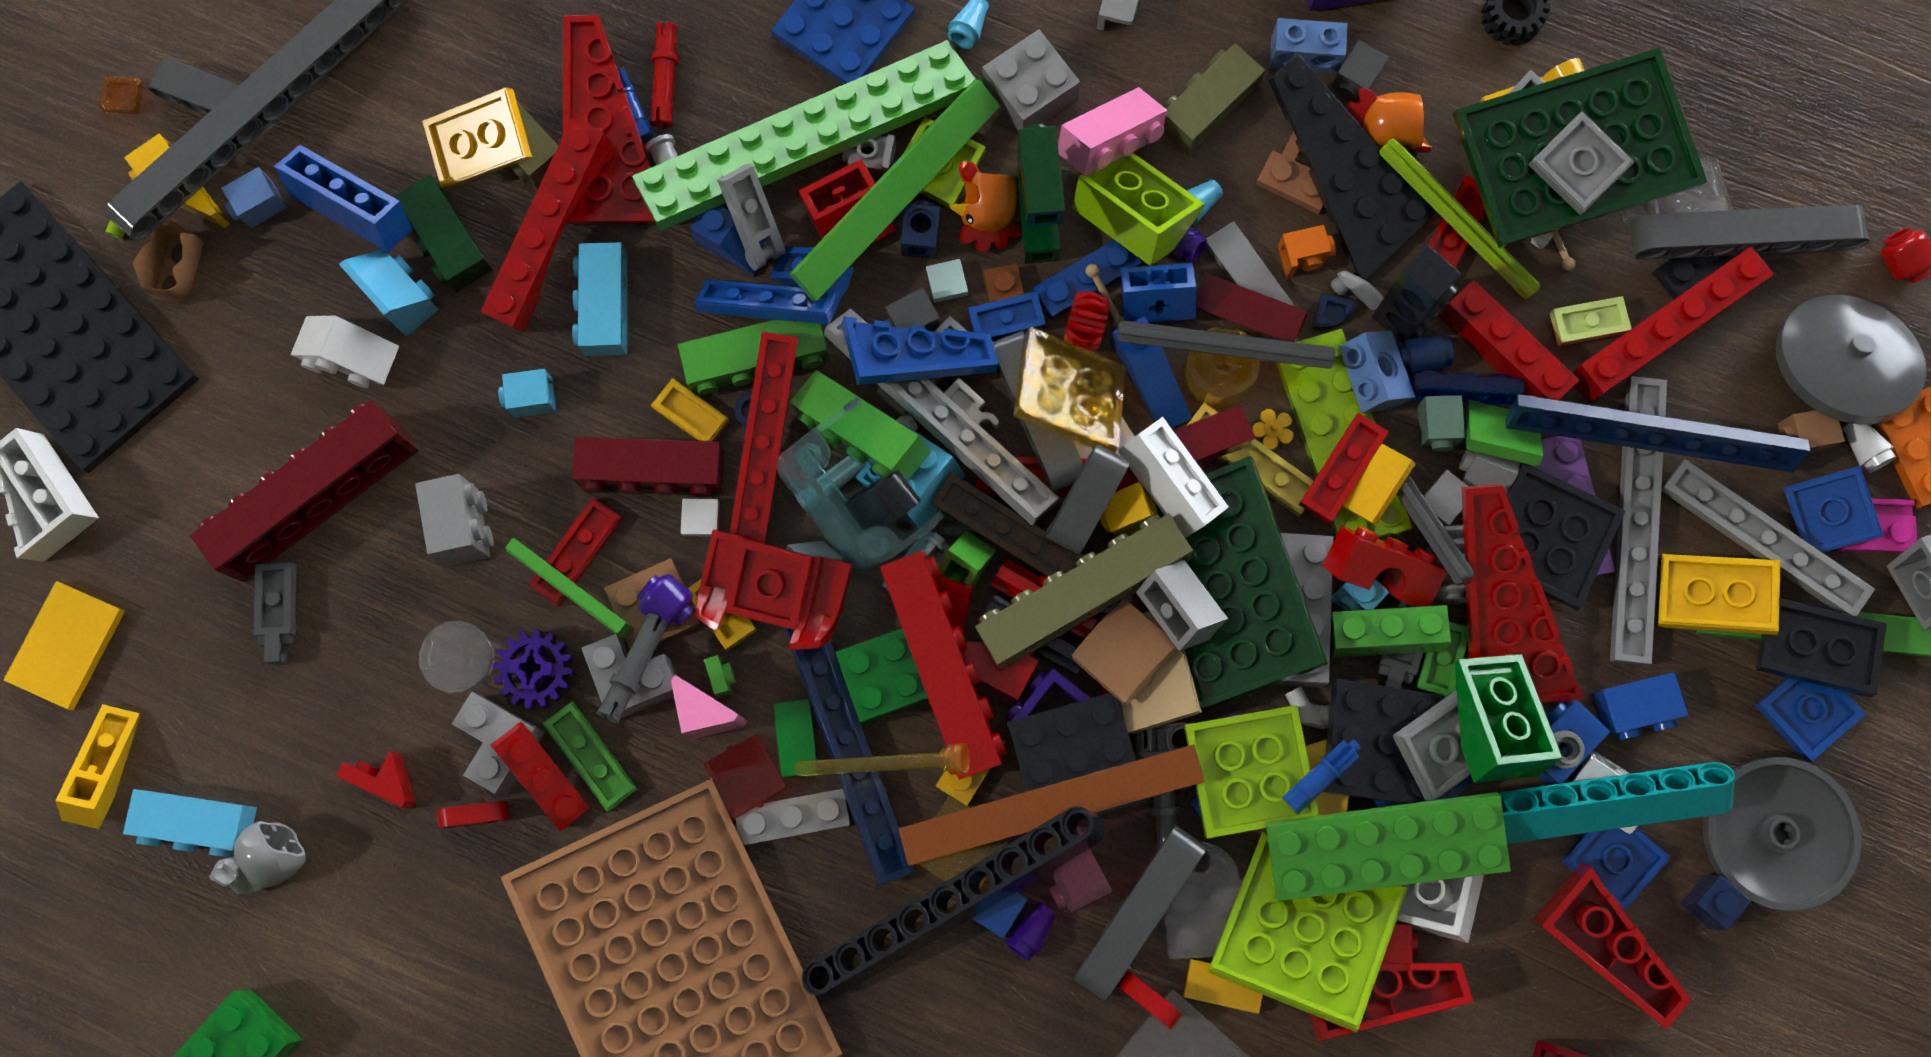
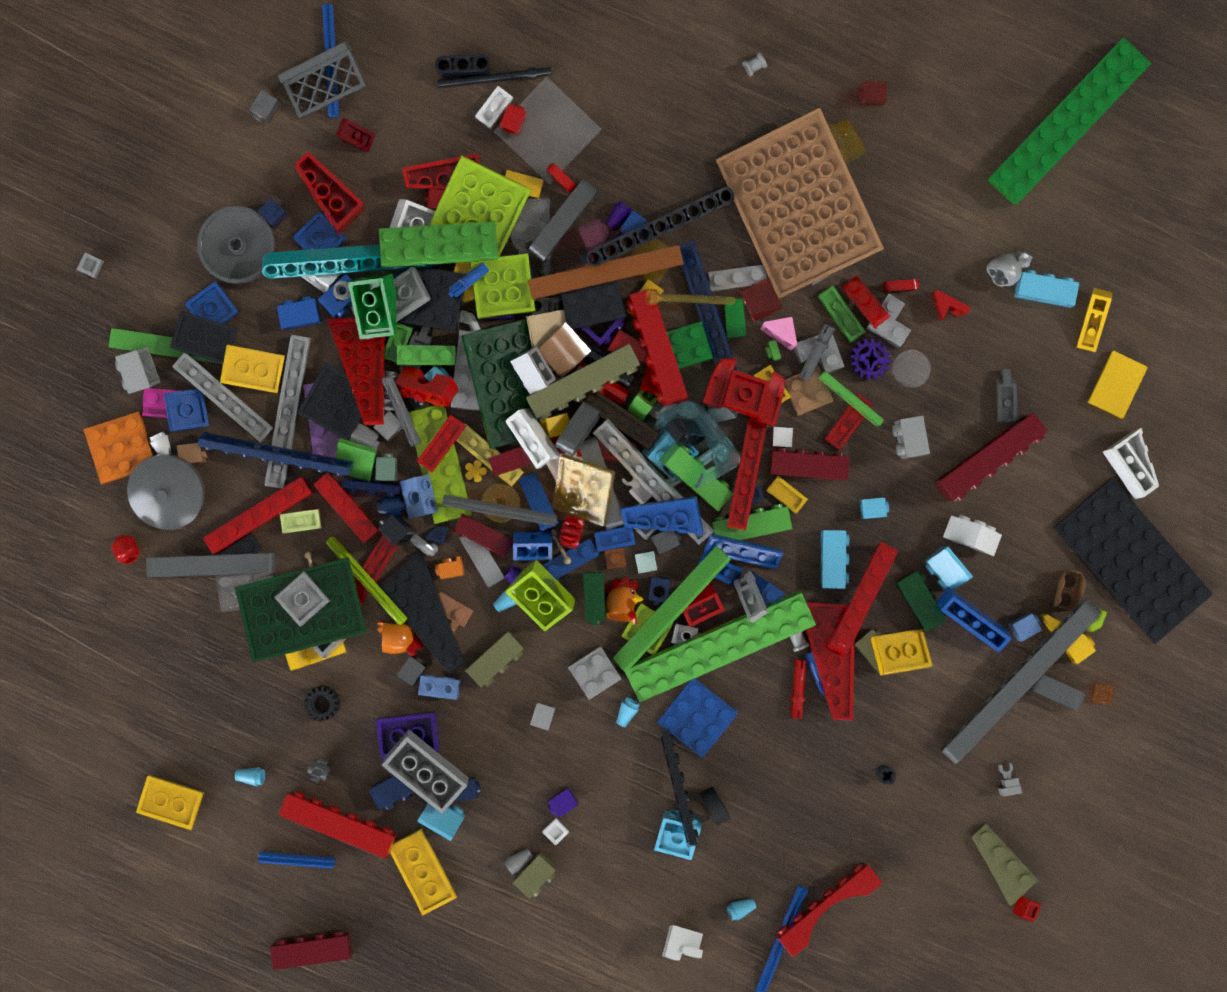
camera: 175 degrees right, 10 degrees up
(666, 599) = (800, 389): dark purple head -> none
(1111, 131) = (551, 637): bright pink brick -> none
(1379, 484) = (424, 433): yellow tile -> none

